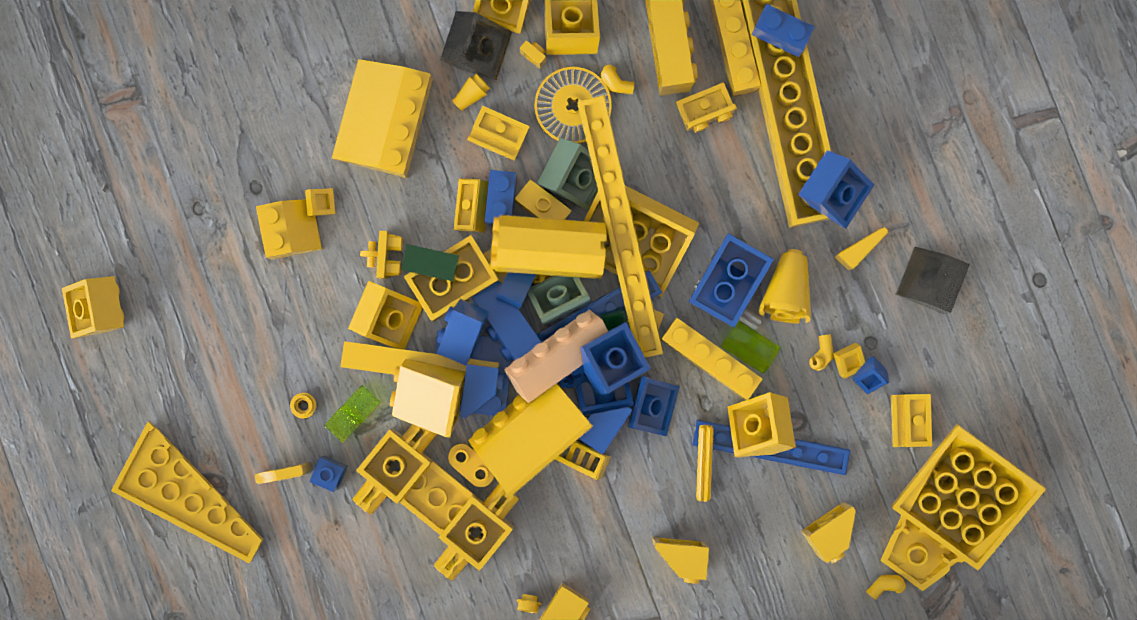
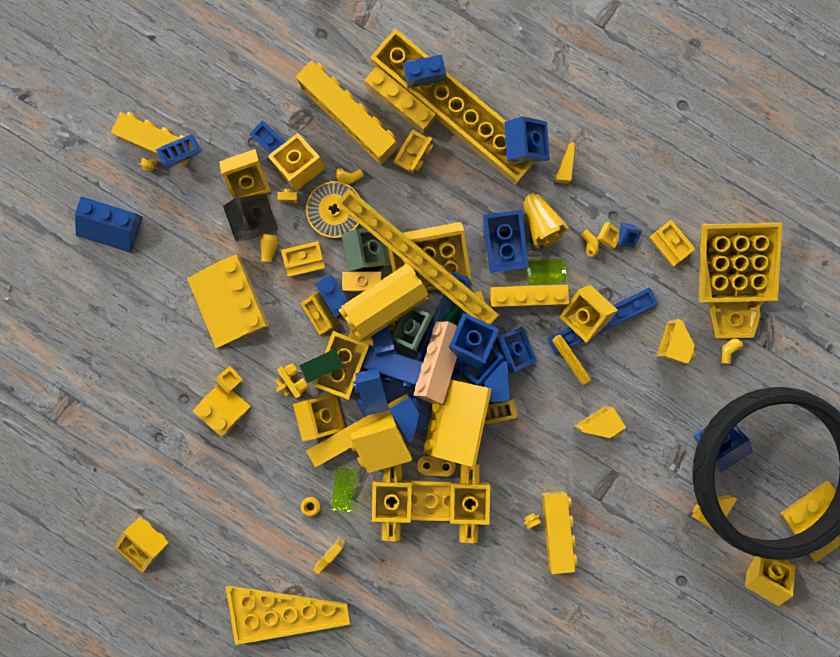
camera: 45 degrees left, 0 degrees up
(328, 473) = (356, 535): blue brick -> none
(932, 279) = (621, 152): clear smoke slope -> none

